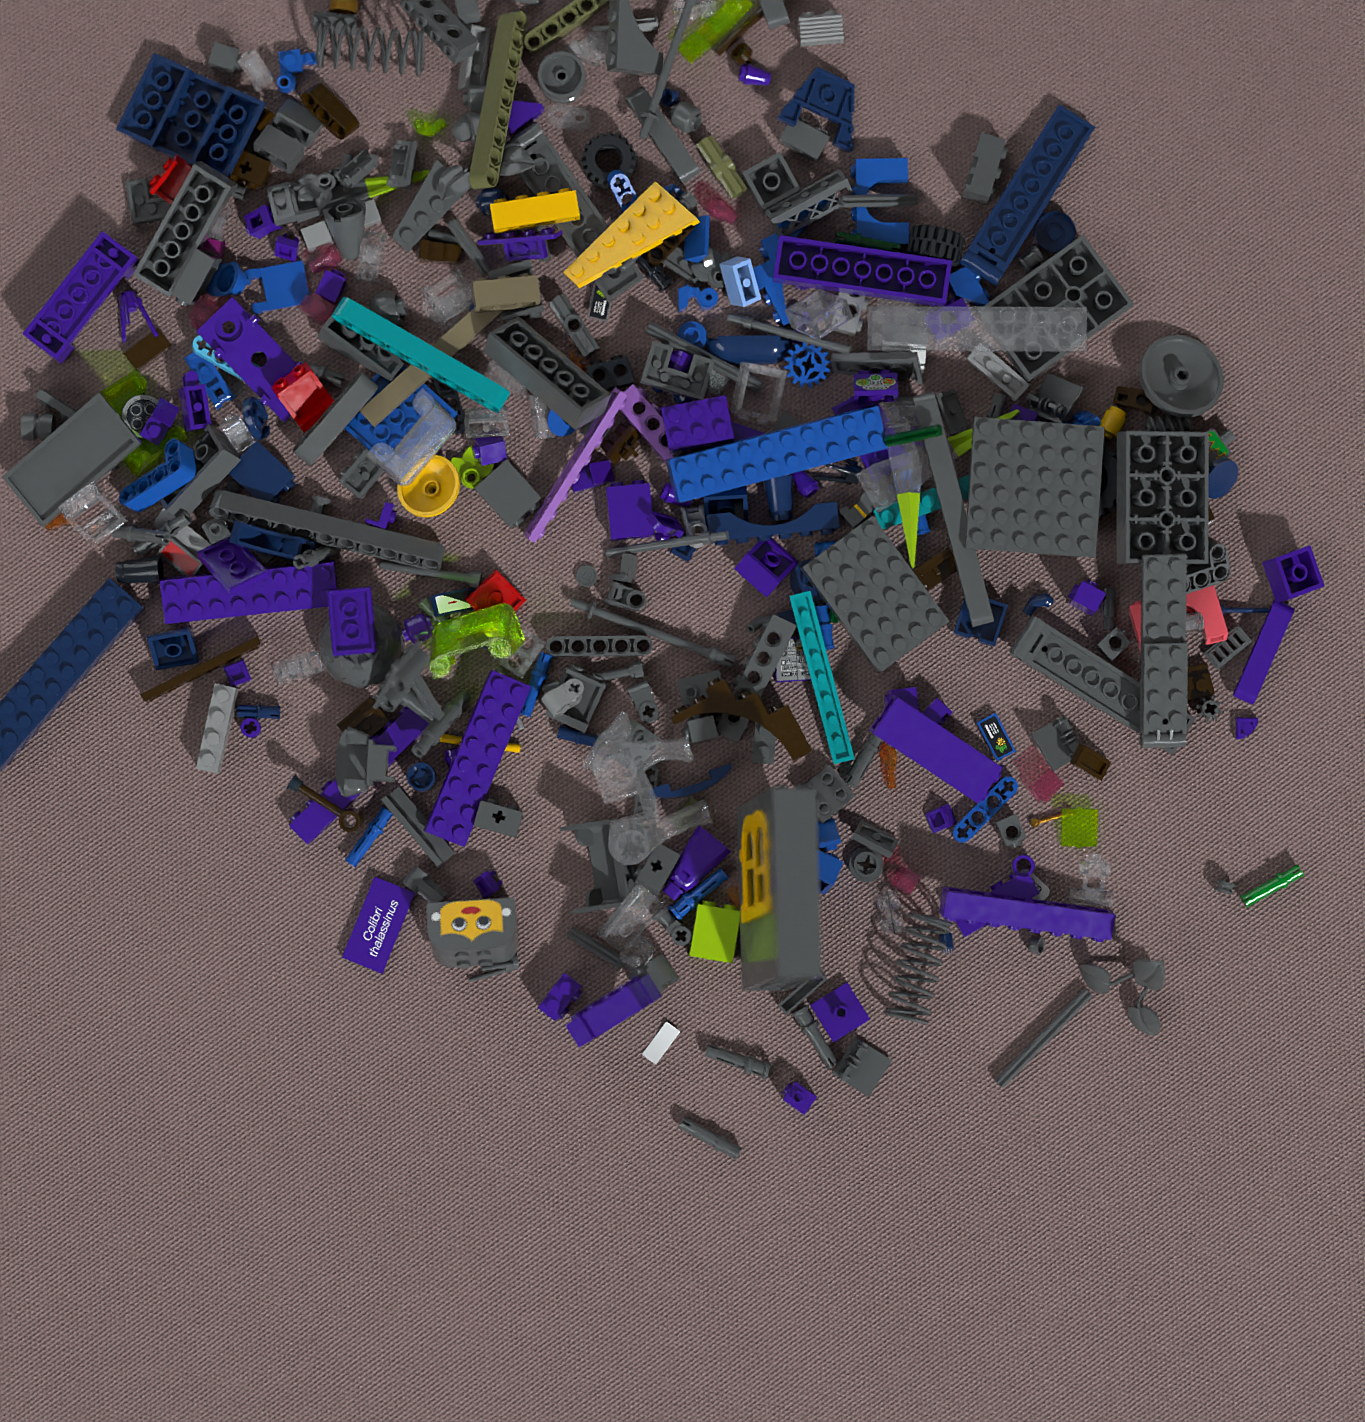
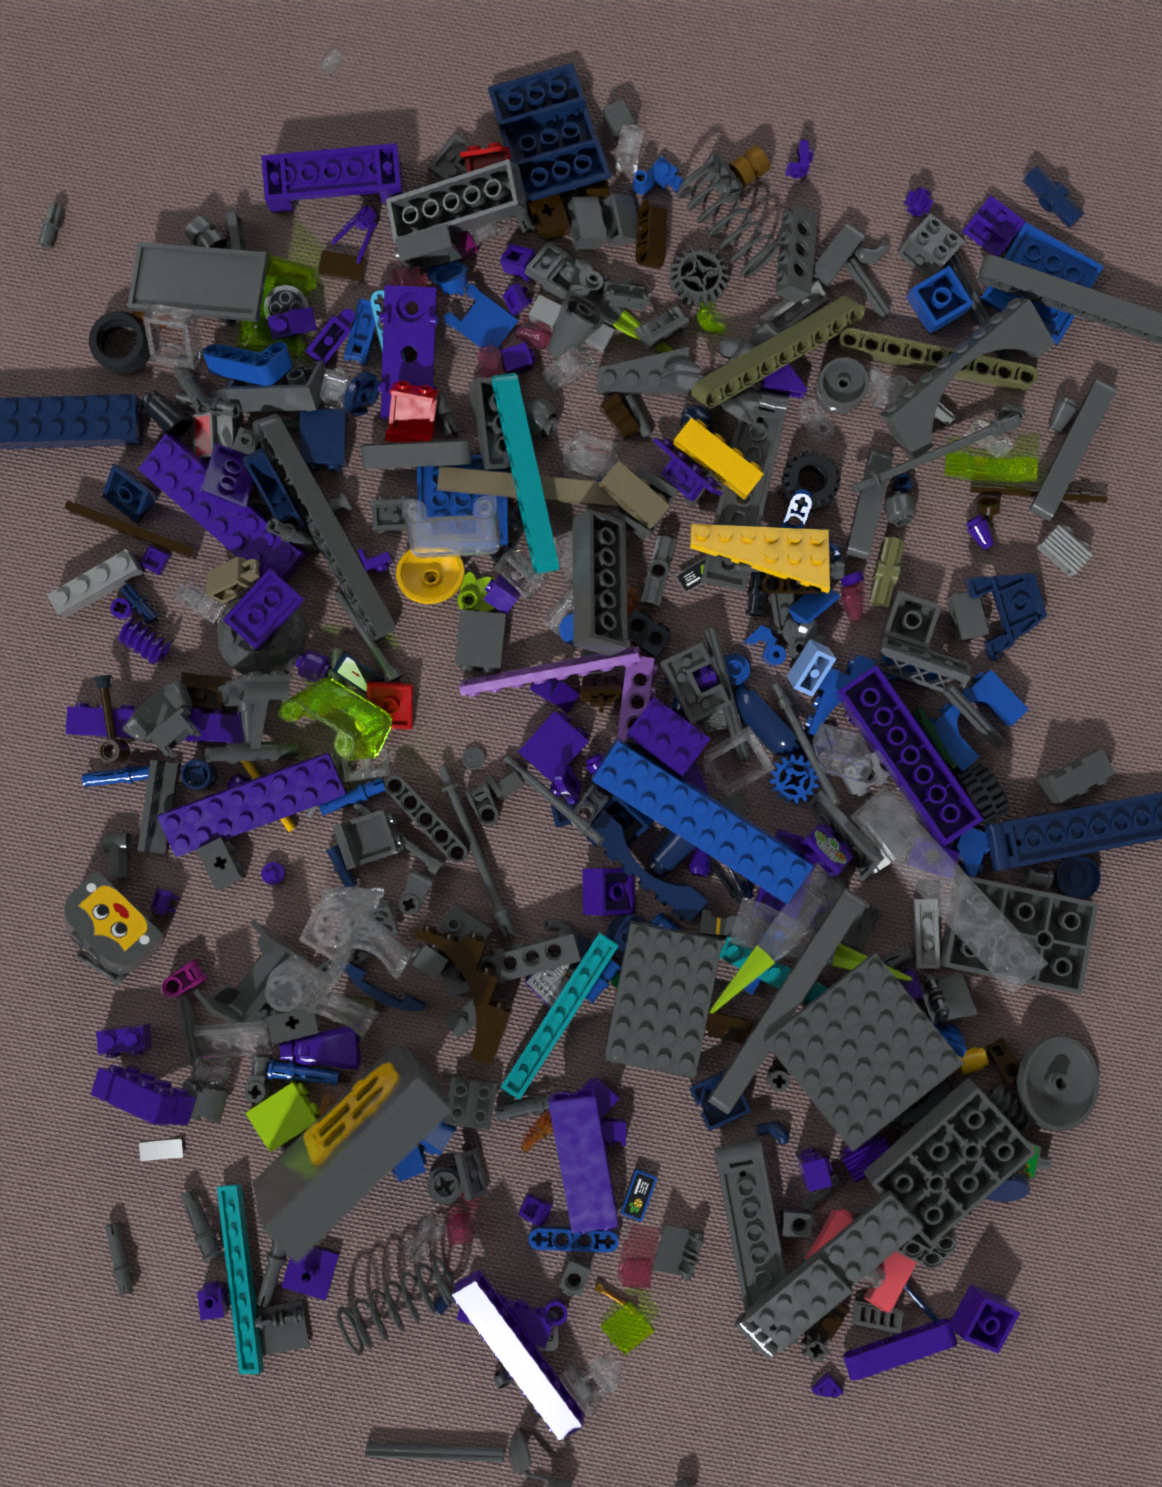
camera: 50 degrees right, 0 degrees up
(36, 556) = (100, 332): none -> black tyre
(290, 731) = (142, 642): none -> dark purple piece
(307, 626) = (232, 579): none -> dark tan brick
(378, 925) = (56, 845): dark purple tile -> none
(386, 114) = (715, 270): none -> dark grey gear
(469, 246) = (645, 434): dark grey axle -> none
(538, 789) = (273, 873): none -> dark purple tile
(557, 915) = (187, 977): none -> magenta piece
(561, 699) = (354, 828): light grey piece -> none
(704, 195) = (852, 579): none -> dark purple tile
(801, 1065) = (240, 1278): none -> teal plate
(913, 435) = (816, 917): dark green axle -> none
(1004, 560) = (783, 1085): none -> dark grey bush
(1090, 762) = (686, 1291): dark brown tile -> none
(1106, 561) = (862, 1157): none -> dark purple brick

